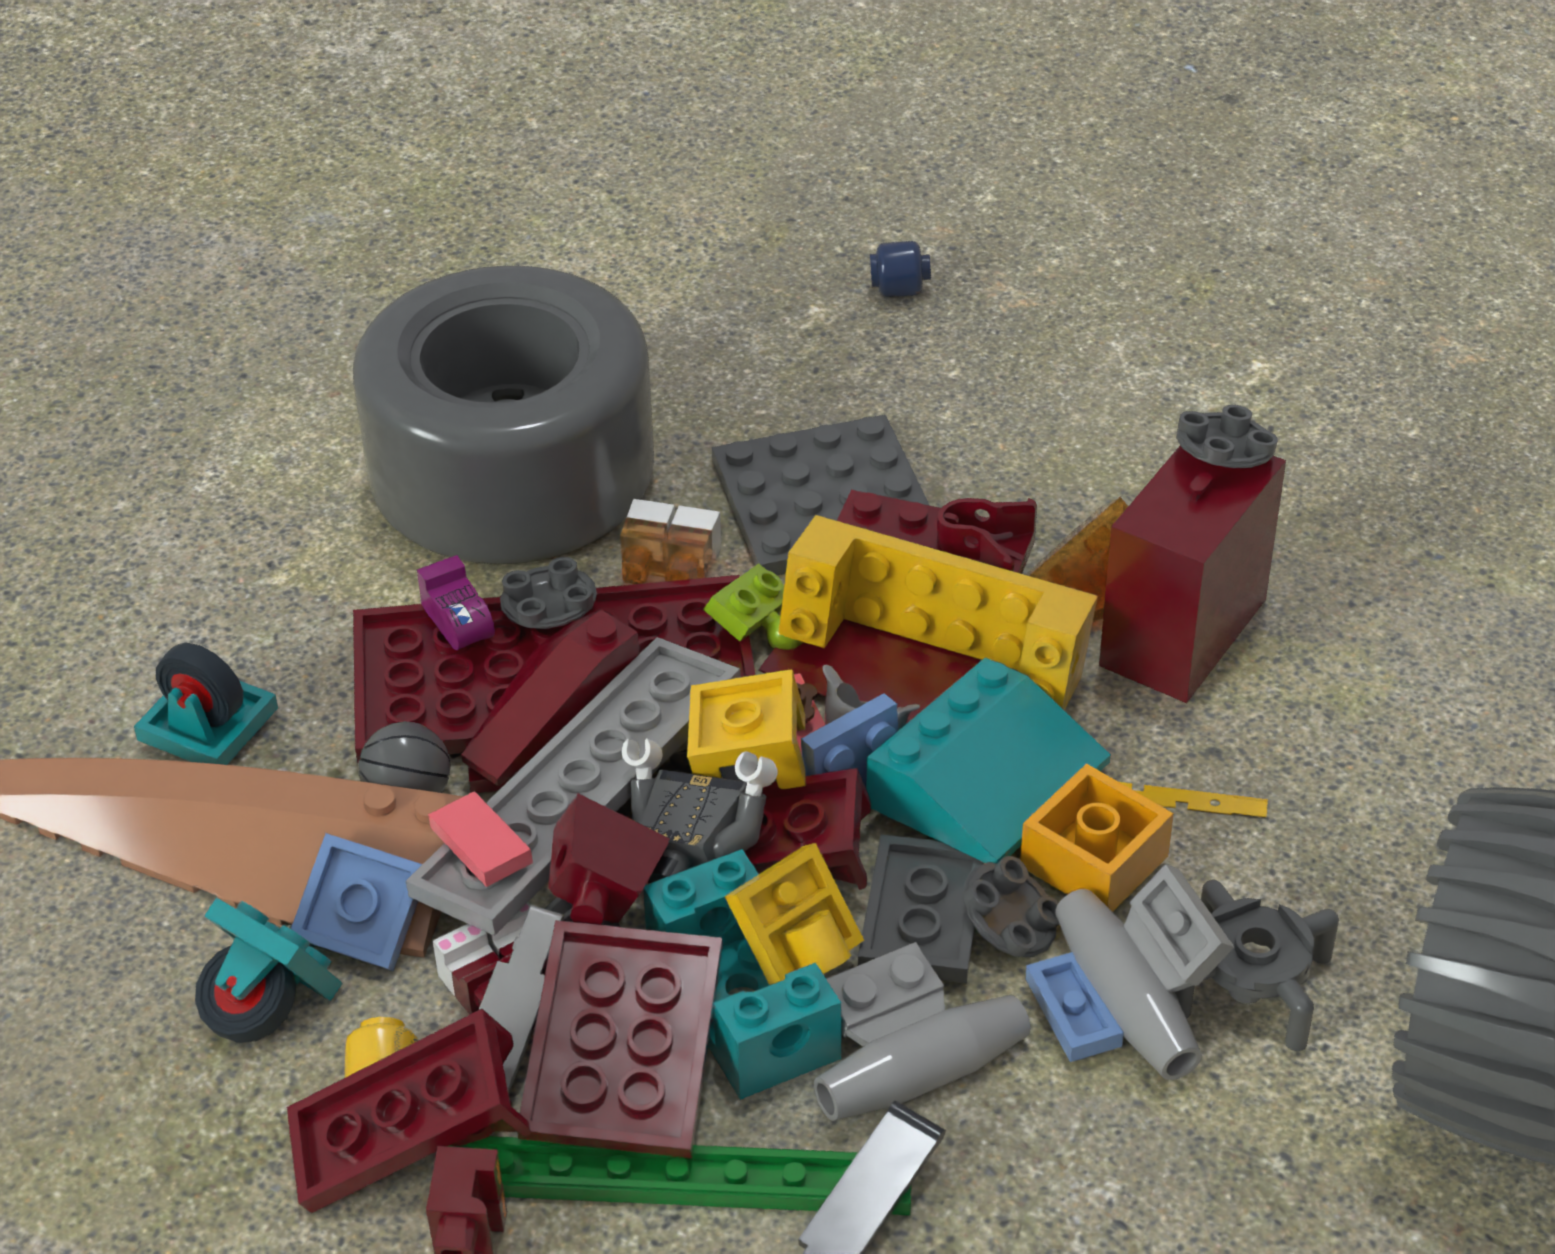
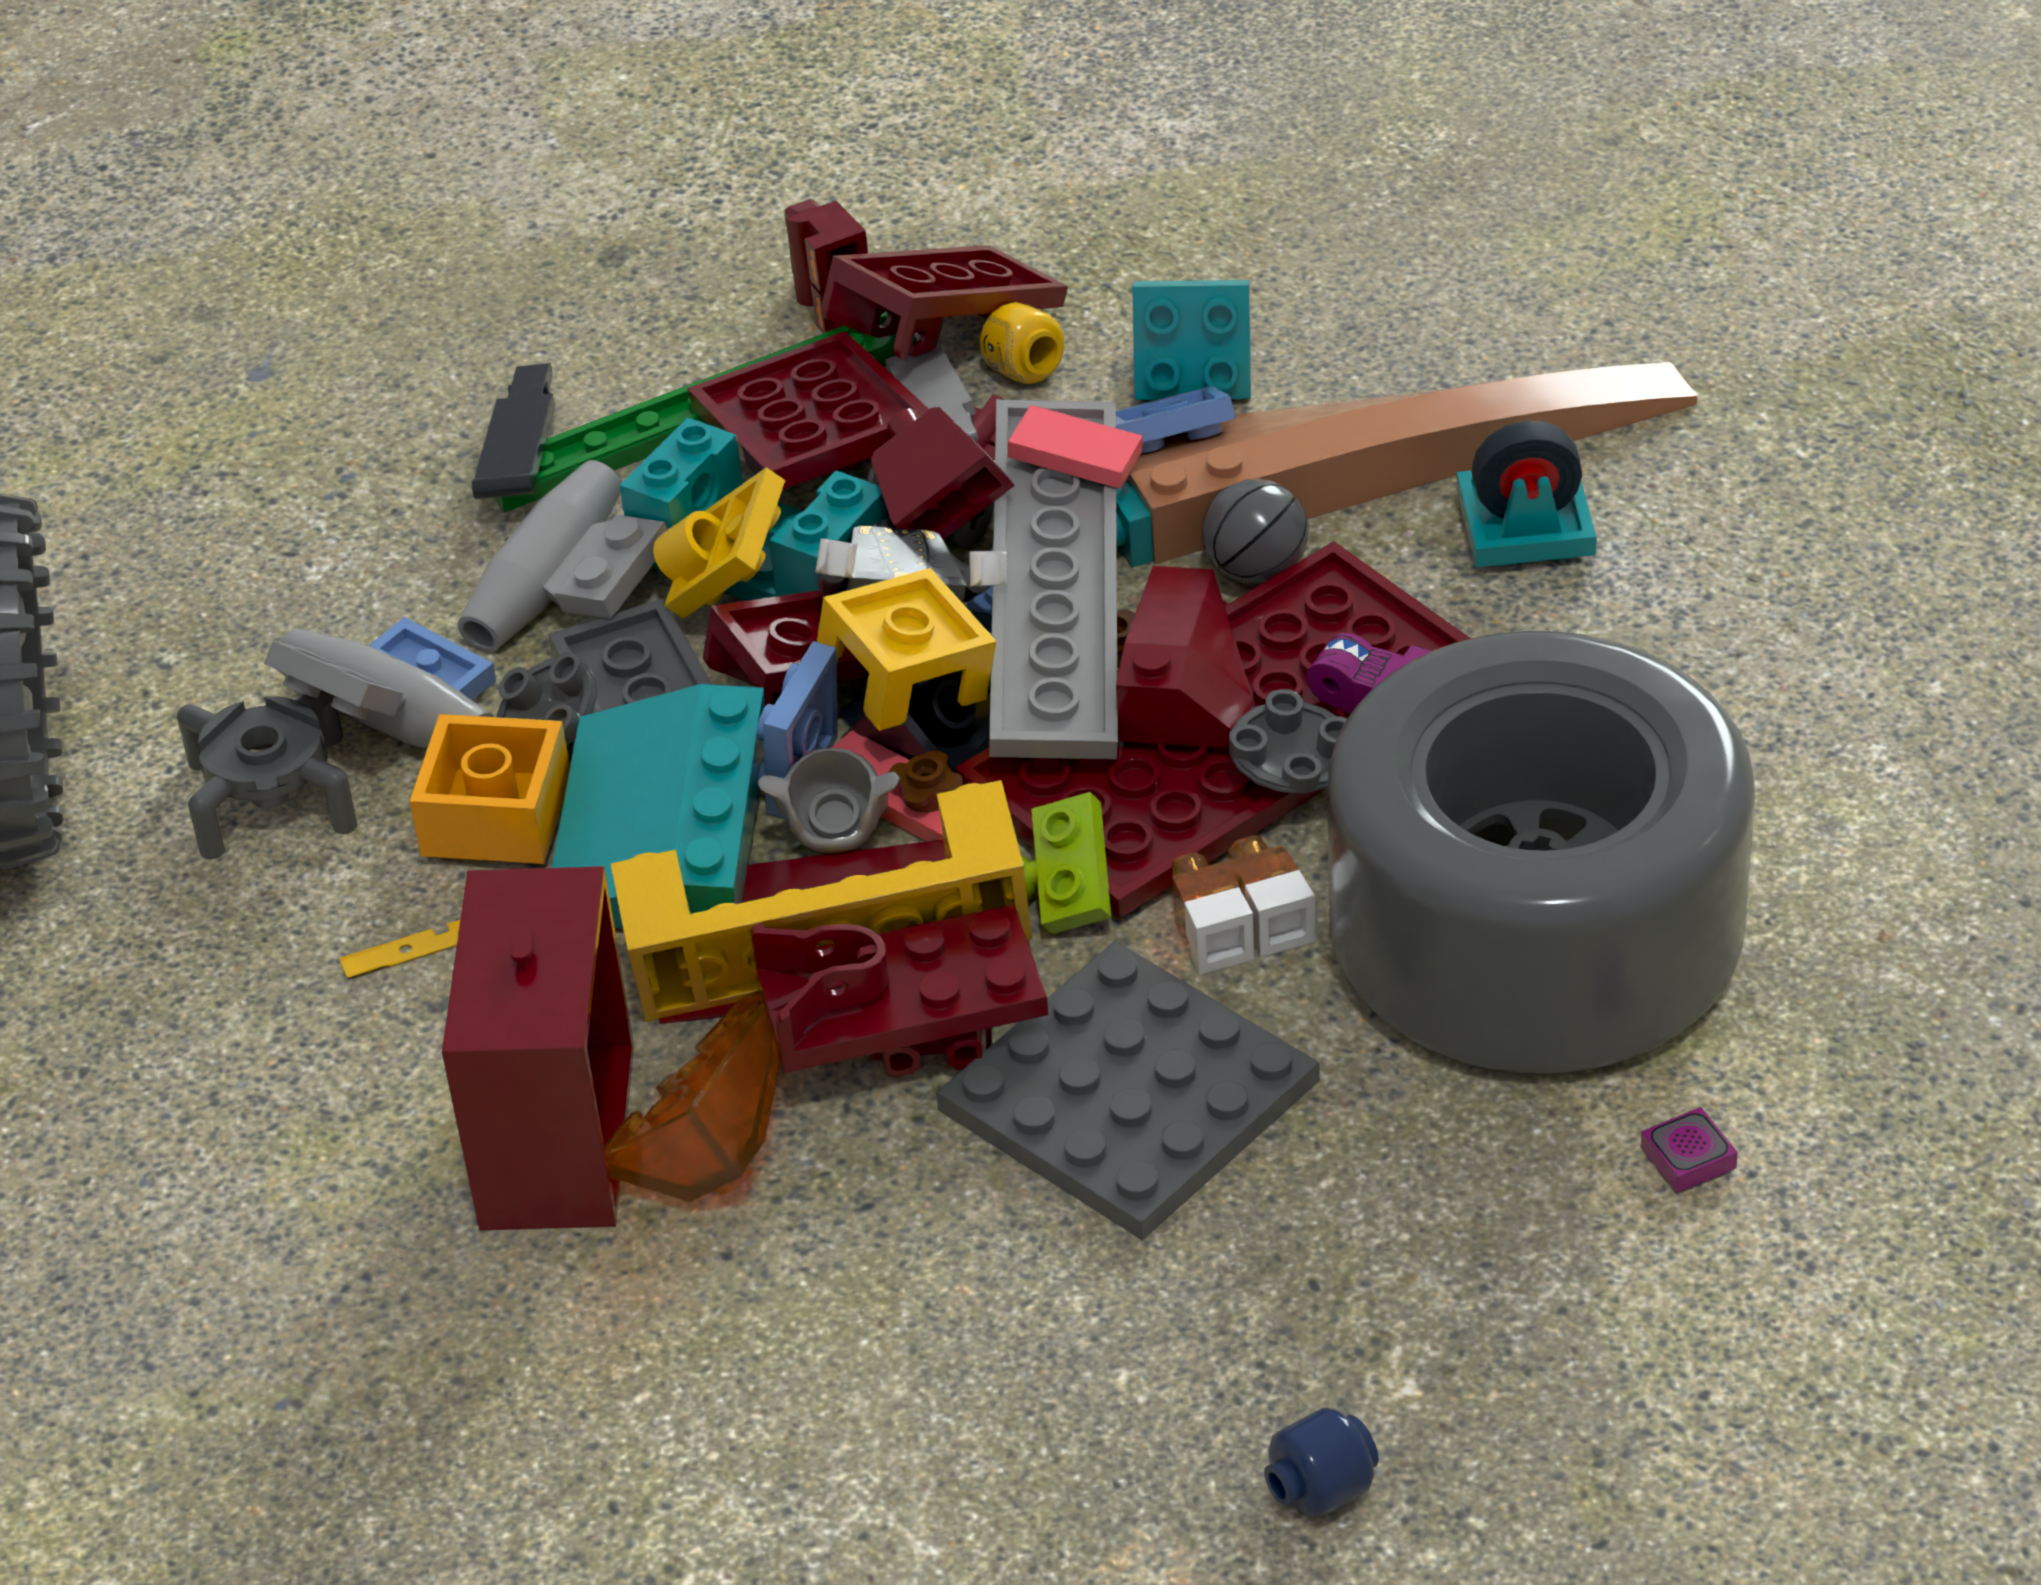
camera: 150 degrees right, 0 degrees up
(1226, 437) = (521, 1006): dark grey dish -> none

